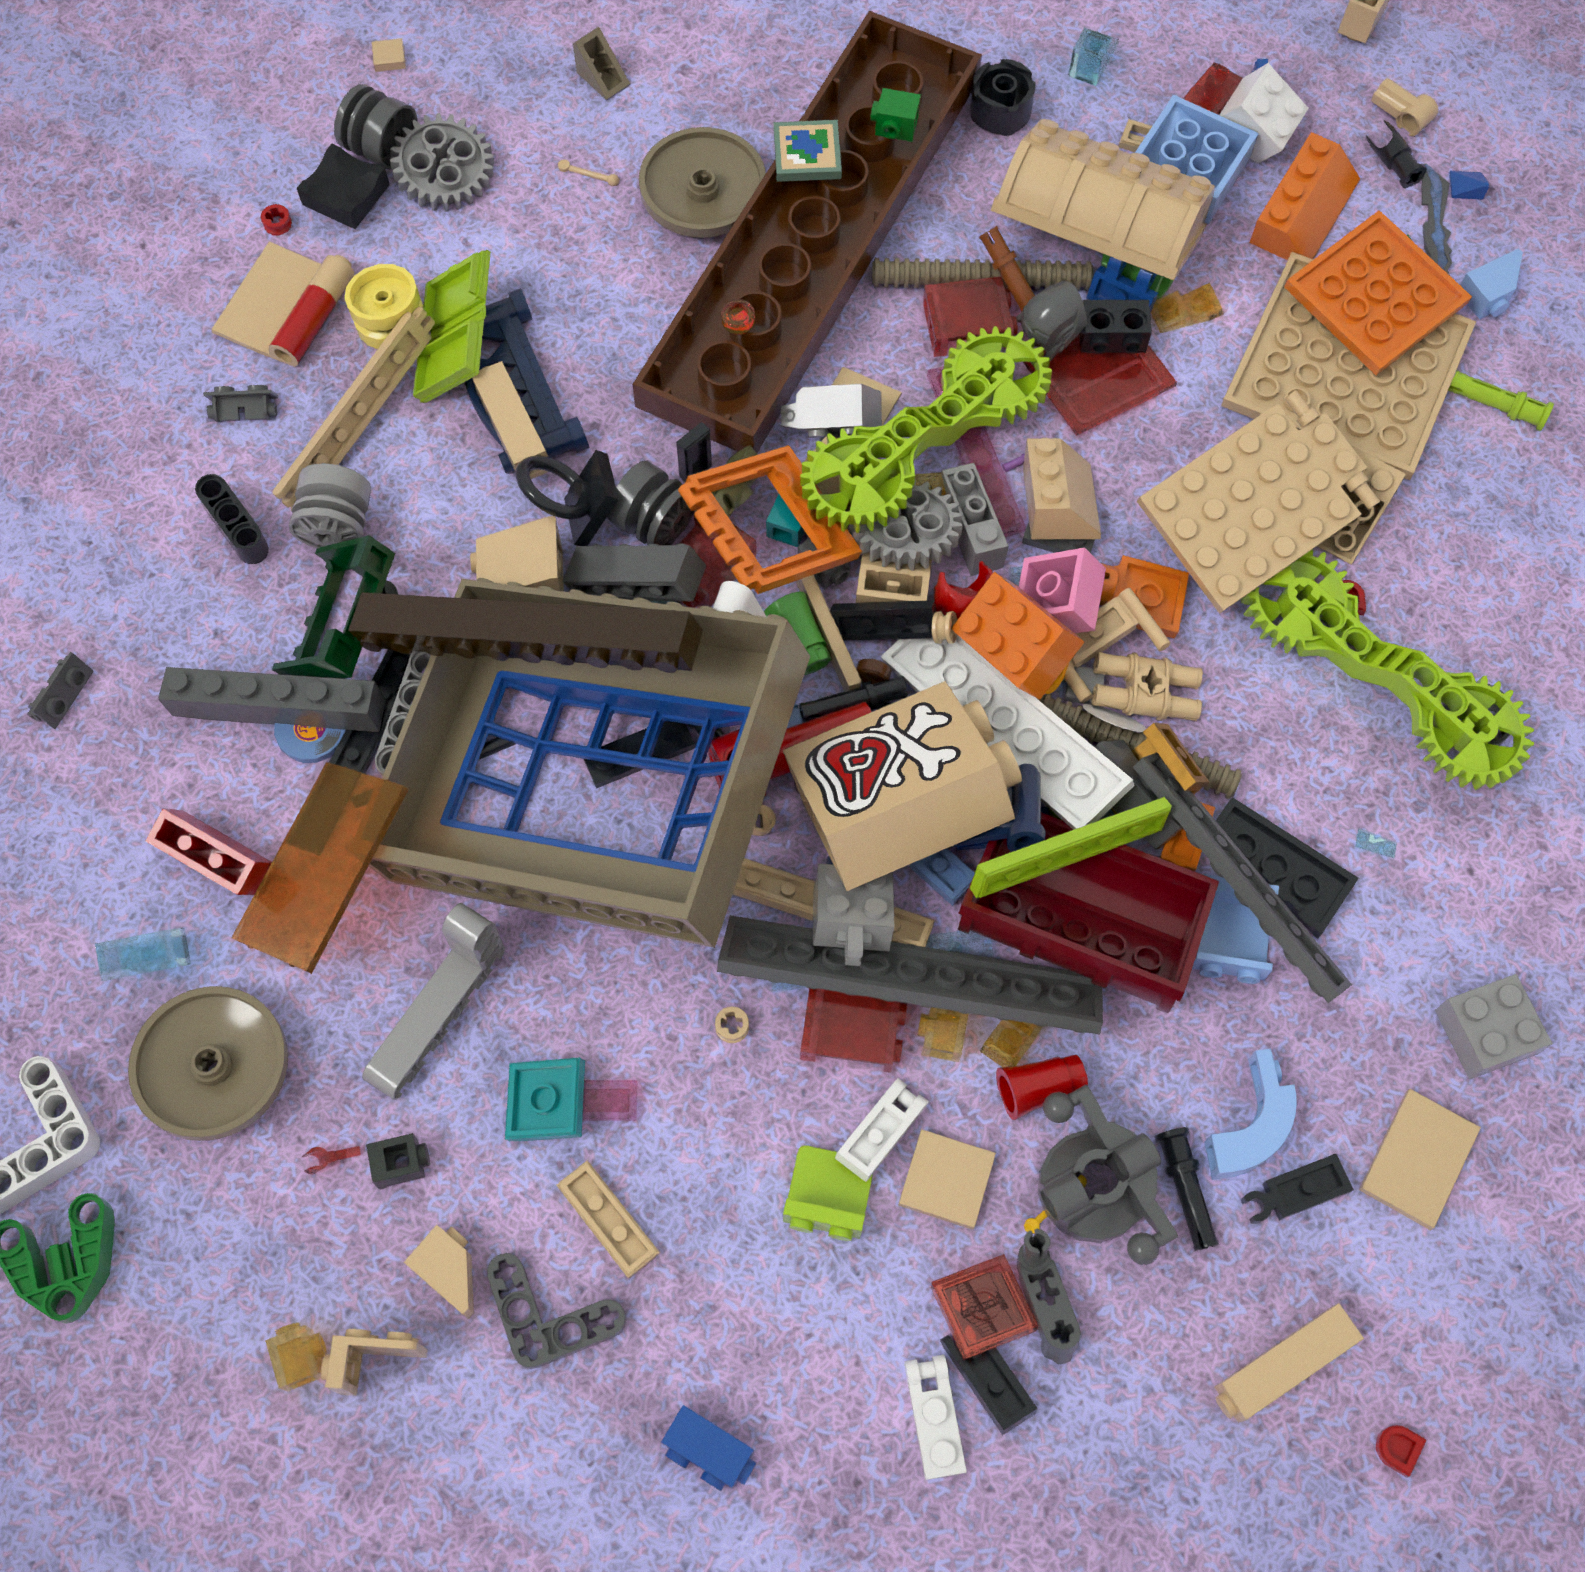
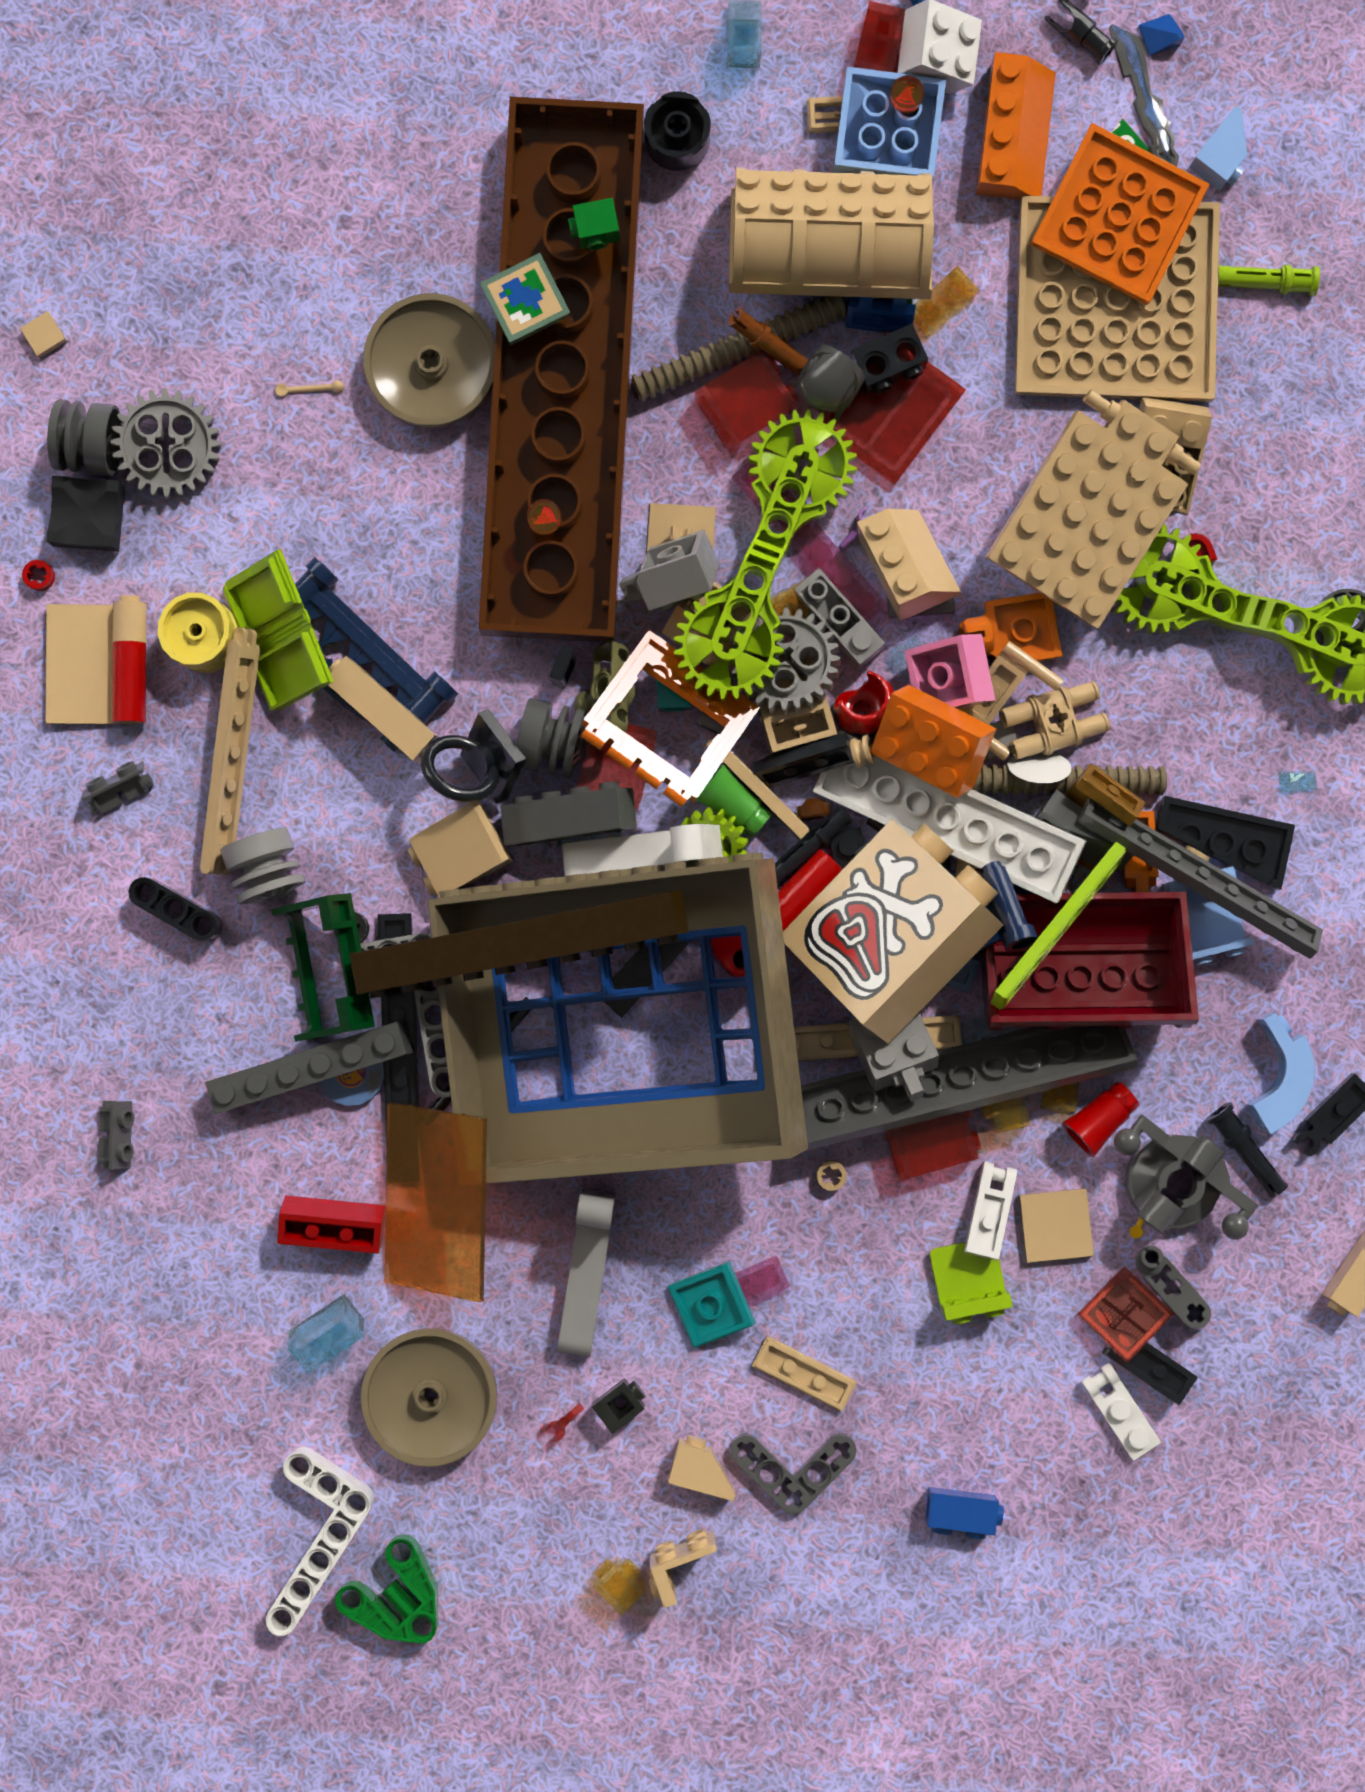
camera: 25 degrees left, 20 degrees up
(598, 64) = (264, 262): dark tan slope -> none
(1218, 129) = (907, 94): none -> clear red tile

